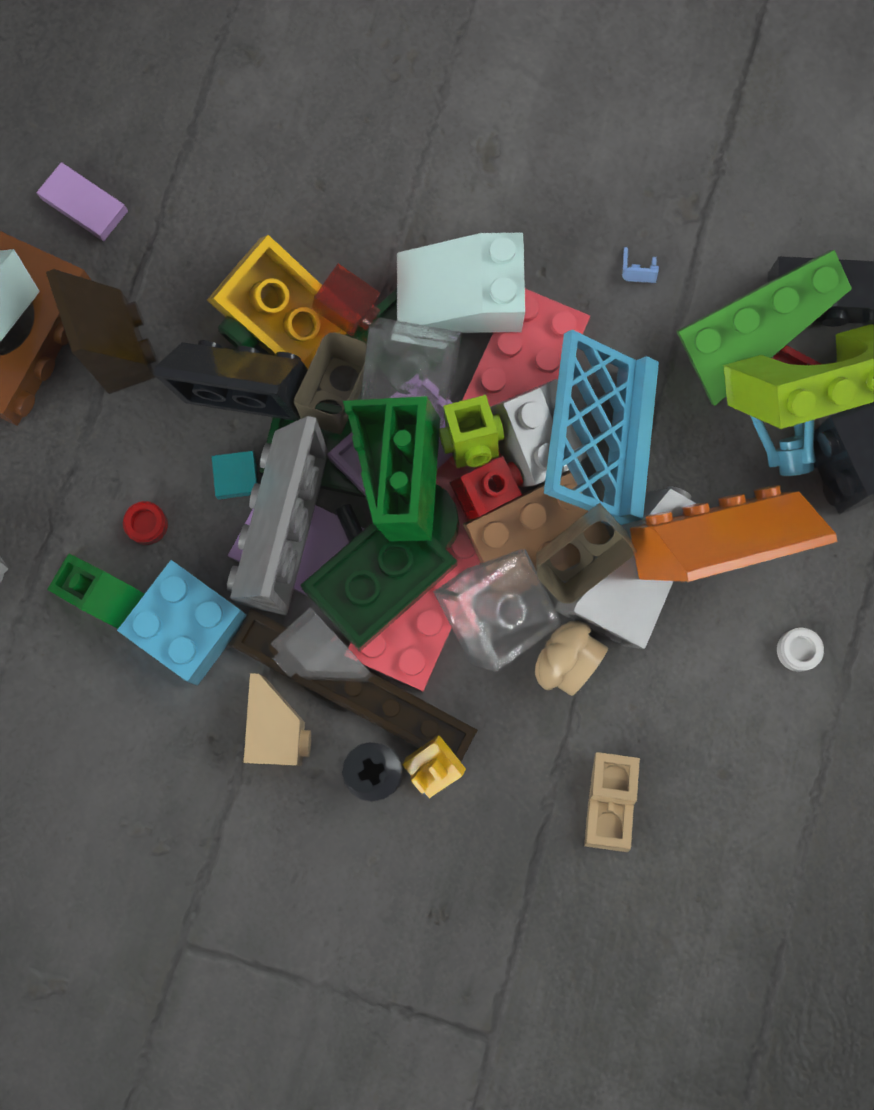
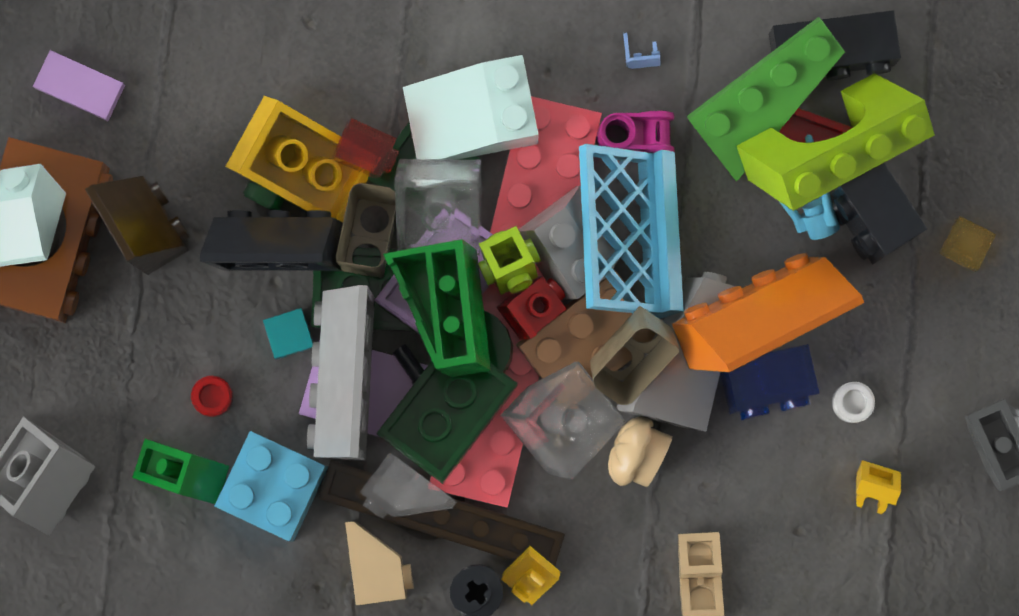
camera: 10 degrees left, 5 degrees up
(627, 335) = (639, 130): none -> dark pink piece
(721, 607) = (770, 380): none -> clear blue brick
(816, 738) = (879, 484): none -> yellow tile

